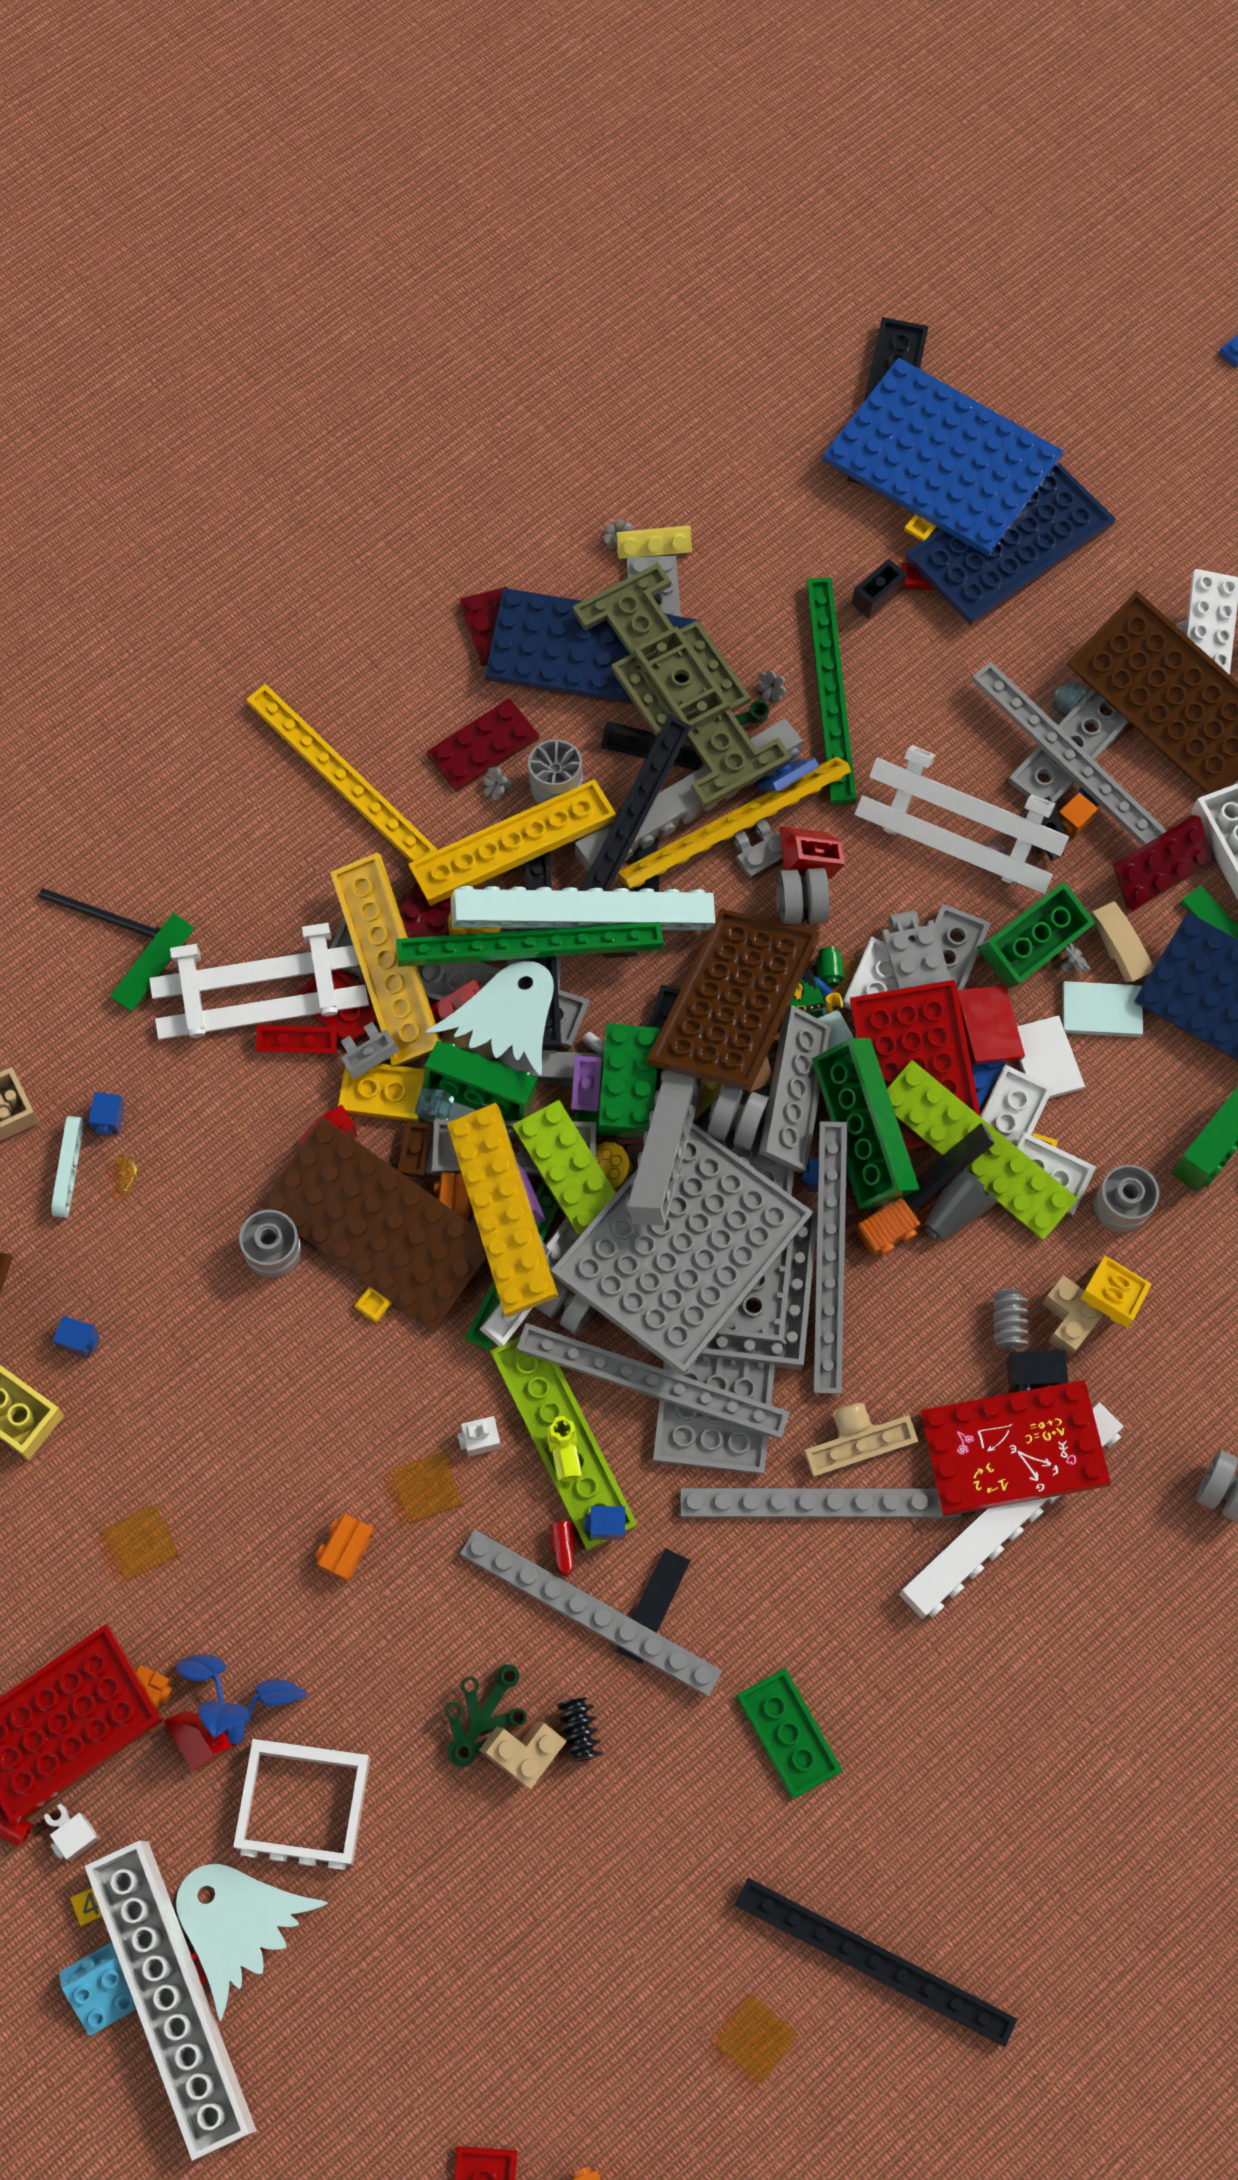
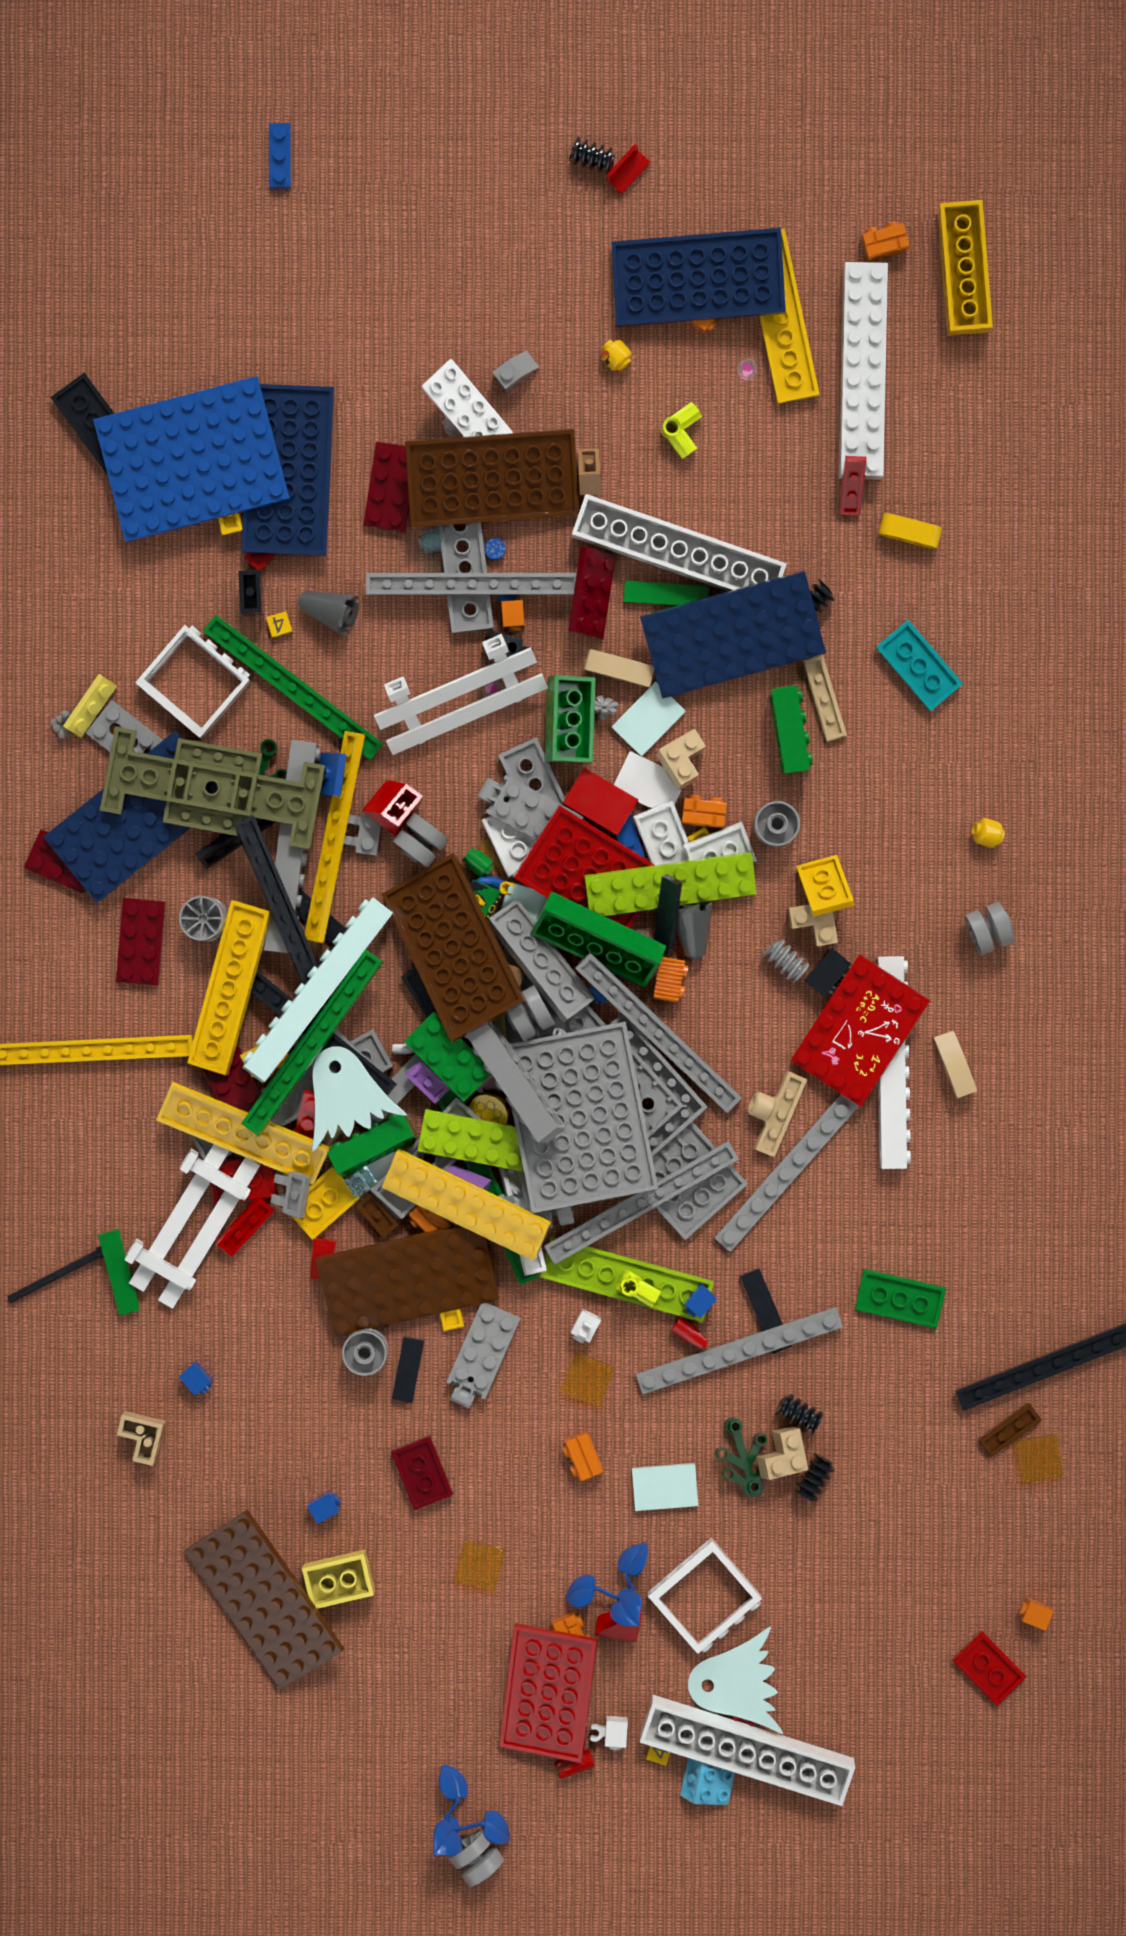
camera: 50 degrees left, 20 degrees up
(67, 1167) = (210, 1427): light aqua beam -> none
(129, 1173) = (245, 1394): clear yellow arm -> none
(191, 1403) = (422, 1472): none -> dark red plate
(285, 1305) = (408, 1369): none -> black tile
(363, 1360) = (481, 1353): none -> light grey hinge
(383, 1661) = (665, 1486): none -> light aqua tile
(496, 783) = (176, 958): light grey plant -> none
(528, 1807) = (815, 1478): none -> black piece
(758, 567) = (208, 646): none -> white window
(758, 1978) = (1009, 1429): none -> reddish brown tile
(771, 686) = (258, 723): light grey plant -> none
(873, 637) = (279, 624): none -> yellow tile
(931, 664) = (331, 609): none -> dark grey cone
(1067, 633) = (388, 490): none -> dark red plate
(1068, 1576) = (955, 1064): none -> tan slope
(1070, 1127) = (704, 812): none -> orange brick
(1098, 1058) = (676, 758): none -> tan brick
(1115, 757) = (495, 549): none -> blue tile

